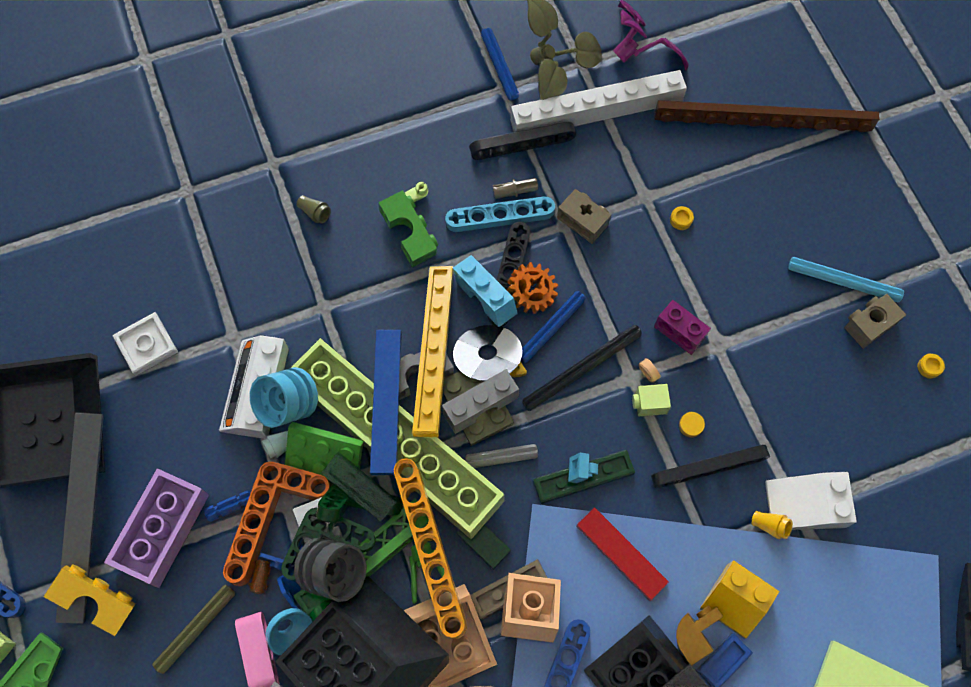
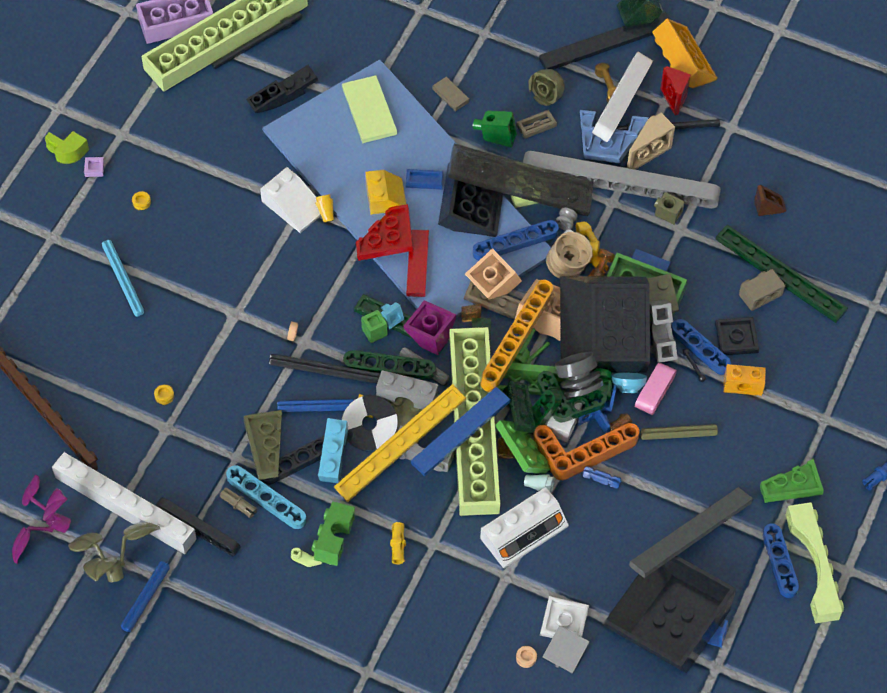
camera: 135 degrees left, 10 degrees down
(112, 606) = (717, 477): yellow arch -> none
(119, 317) = (565, 649): none -> light grey piece
(151, 284) = (526, 656): none -> light nougat tile
(157, 528) = (653, 493): lavender brick -> none
(283, 397) = (516, 482): medium azure wheel -> none
(315, 209) = (375, 607): olive cone -> none
(351, 275) = (398, 543): none -> yellow pin
(515, 552) = (470, 312): none -> clear orange tile
(525, 432) = (399, 361): none -> dark green beam
(534, 493) = (430, 326): none -> magenta slope
(540, 296) = (302, 431): orange gear -> none
(551, 249) = (264, 440): none -> olive wing
(584, 215) = (221, 435): dark tan brick -> none
(586, 442) = (374, 326): none -> bright green panel
(651, 400) = (310, 315): yellowish green brick -> none
(681, 552) = (388, 235): none -> red plate
(682, 327) = (247, 334): magenta brick -> none
(690, 636) = (425, 199): pearl gold brick -> none
(691, 424) = (303, 289): yellow tile -> none
(710, 466) = (321, 260): black beam -> none
(883, 310) = (149, 240): dark tan brick -> none

